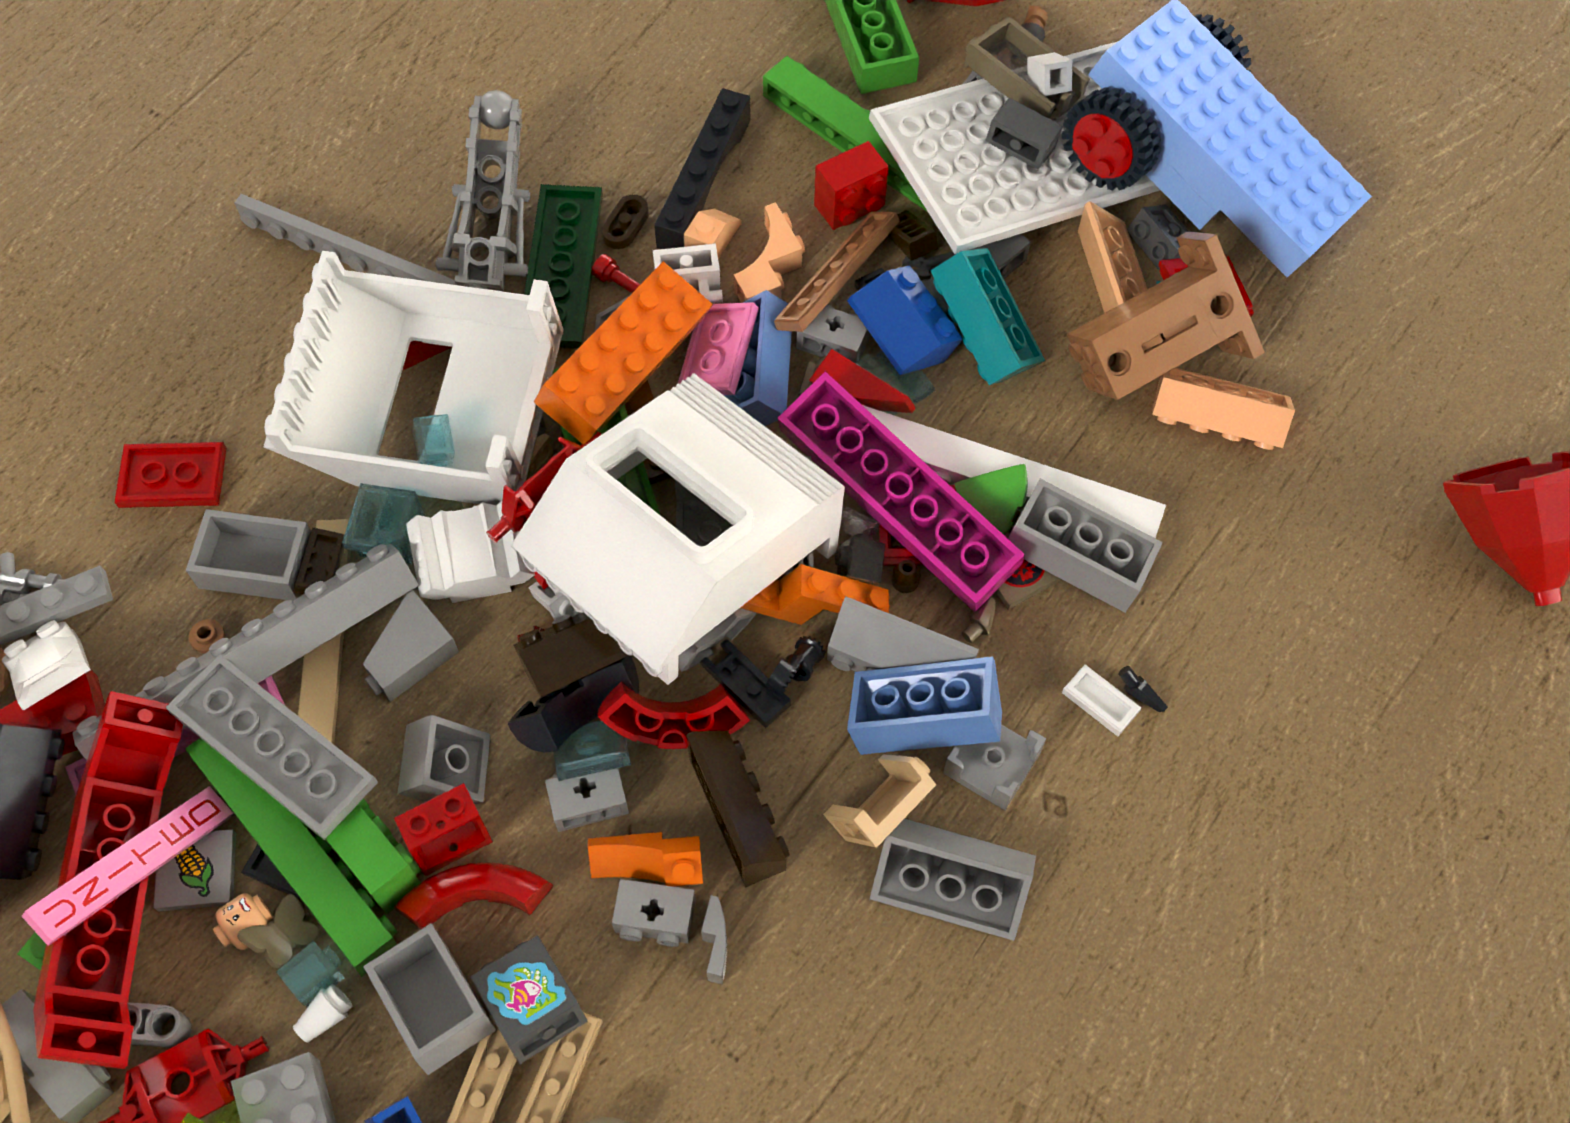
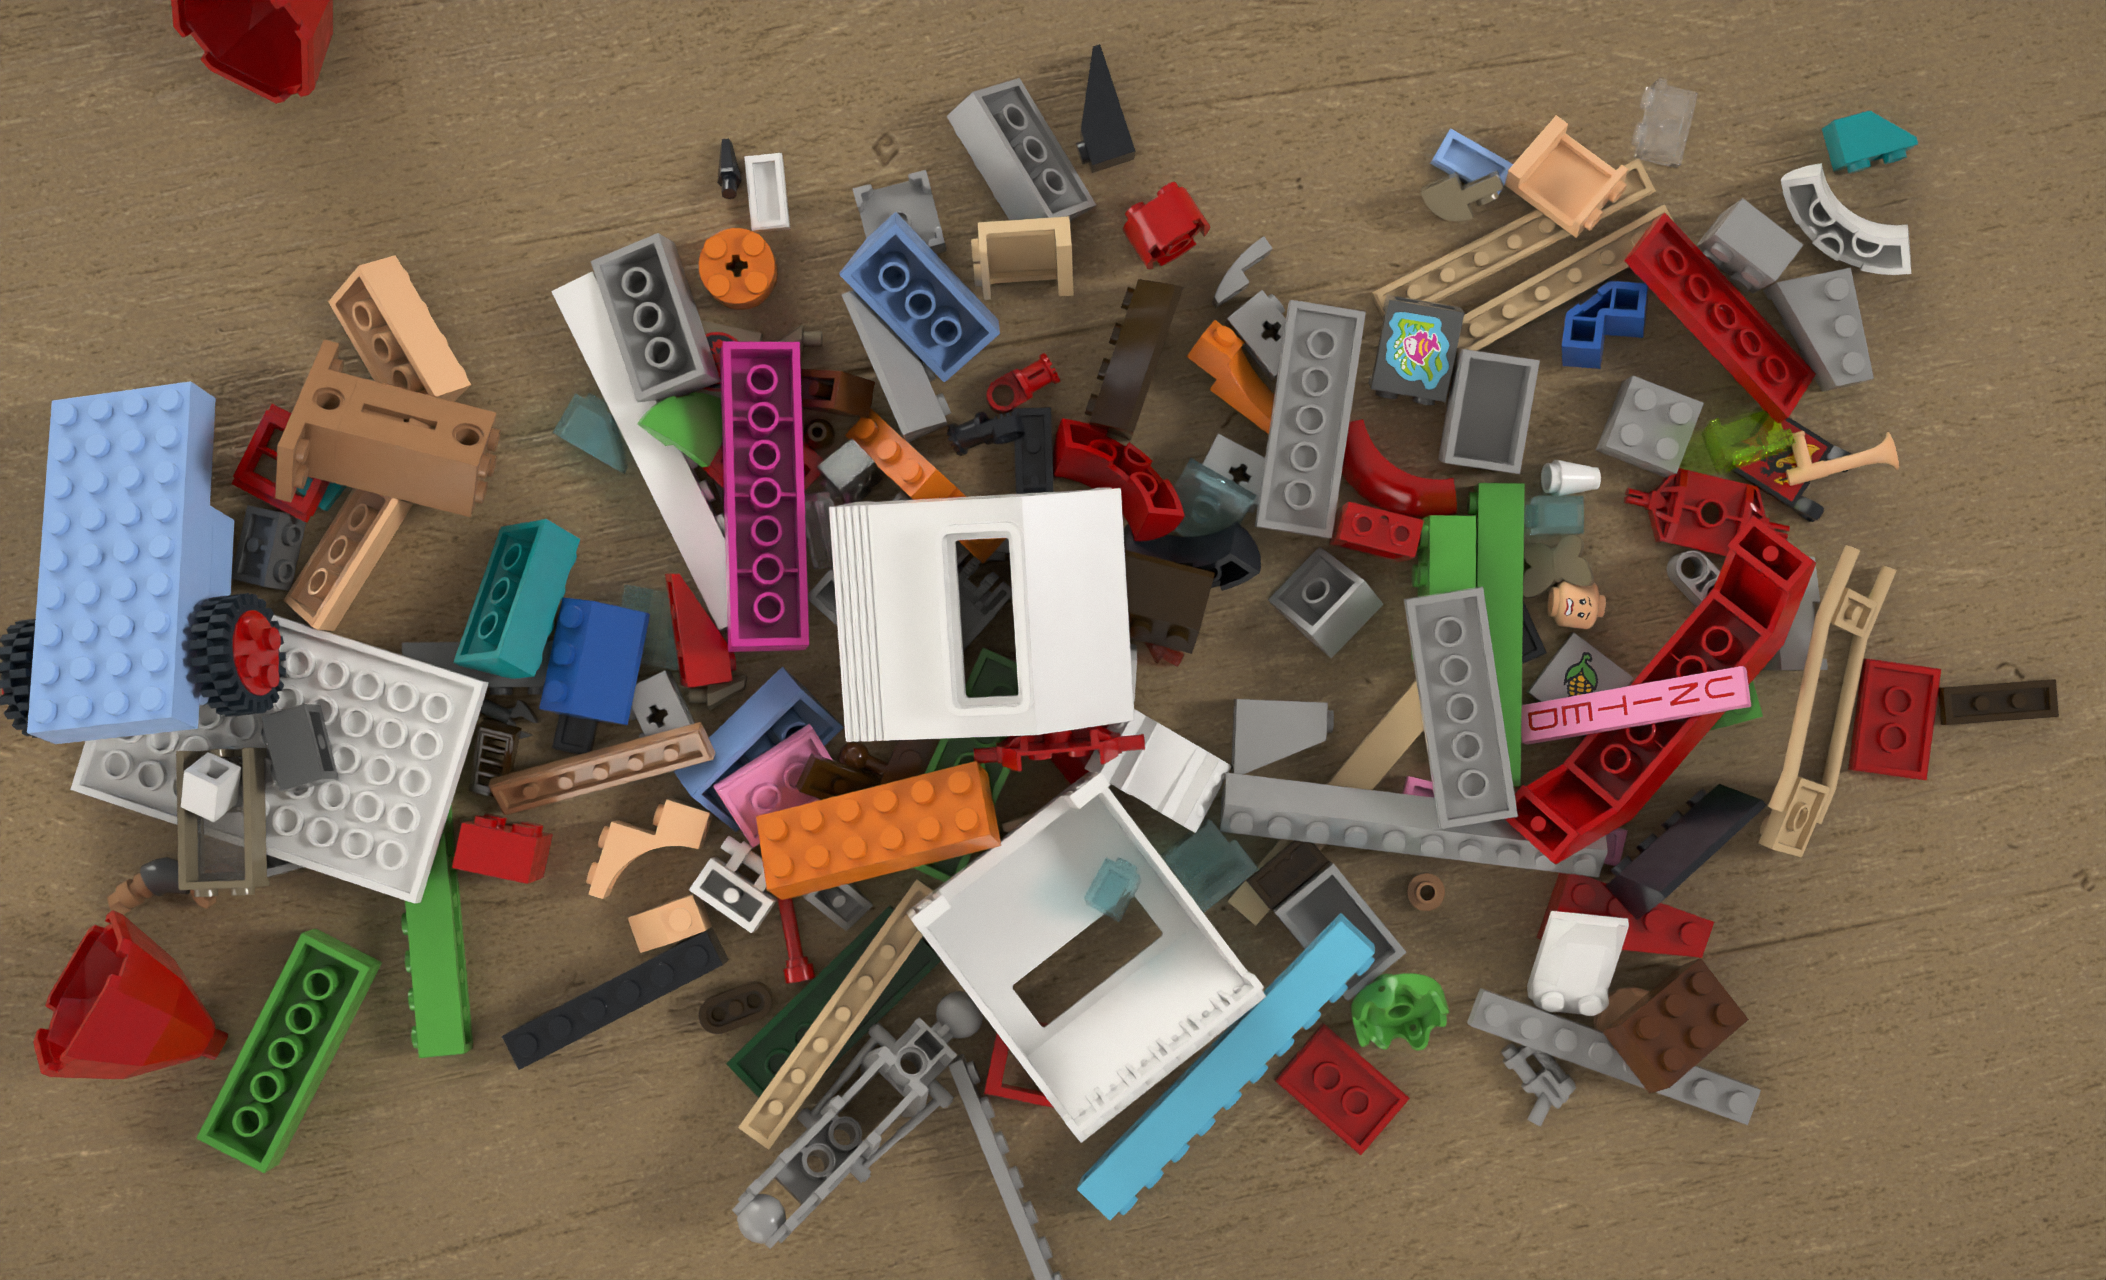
camera: 145 degrees left, 25 degrees up
(174, 532) = (1397, 1006): none -> bright green plate
(247, 466) = (1226, 1067): none -> medium azure brick
(552, 243) = (836, 1022): none -> tan plate
(565, 867) = (1310, 419): none -> light grey plate
(695, 361) = (829, 778): none -> dark brown plate
(800, 723) = (1021, 385): none -> red connector
(801, 917) = (1164, 225): none -> red brick
(920, 957) = (1103, 127): none -> black slope
(924, 603) = (836, 393): none -> reddish brown slope
(1050, 447) = (592, 430): none -> clear light blue slope
(1083, 626) = (722, 253): none -> orange brick

